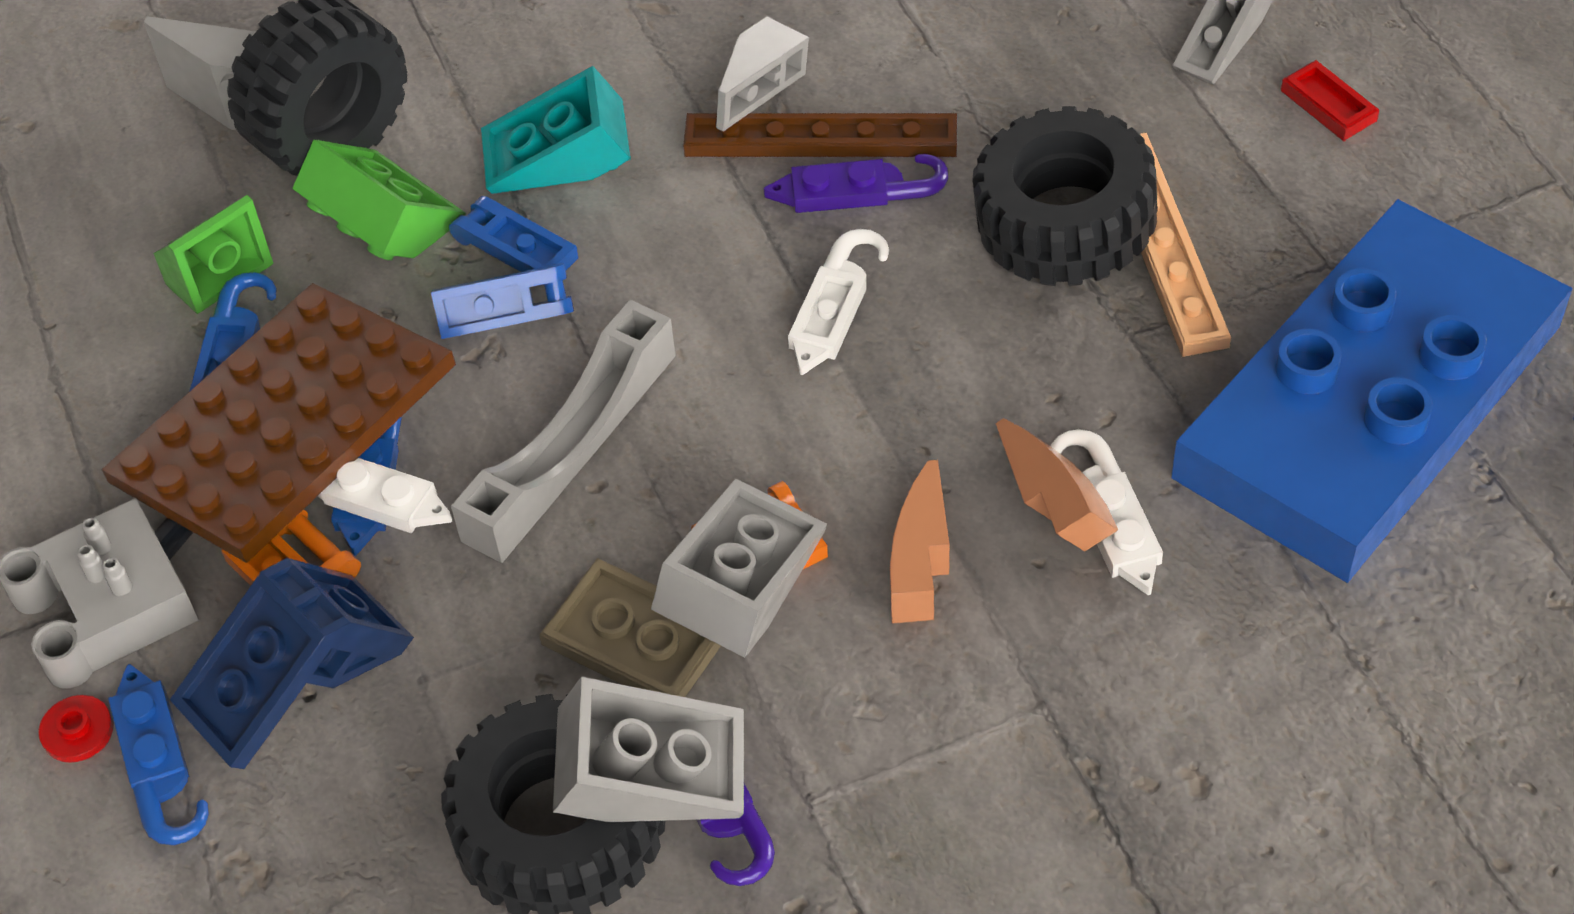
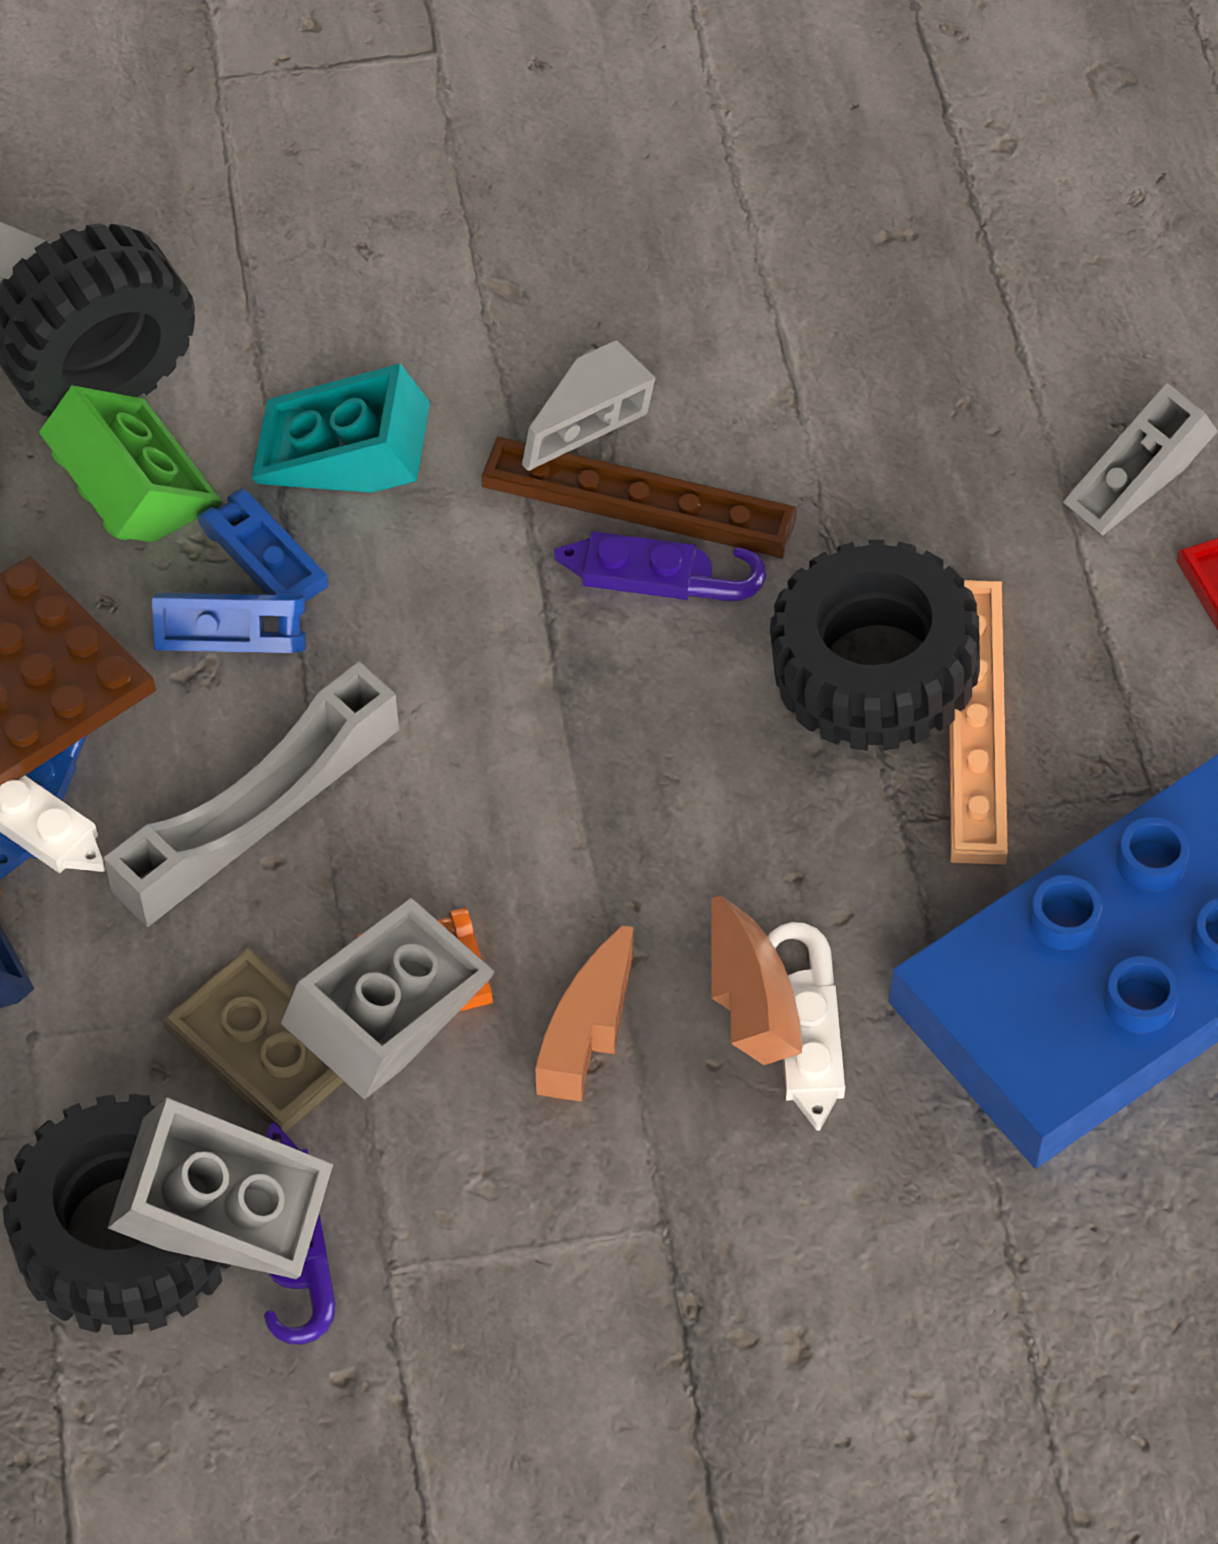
camera: 10 degrees right, 5 degrees up
(832, 301) = (586, 706): white plate -> none

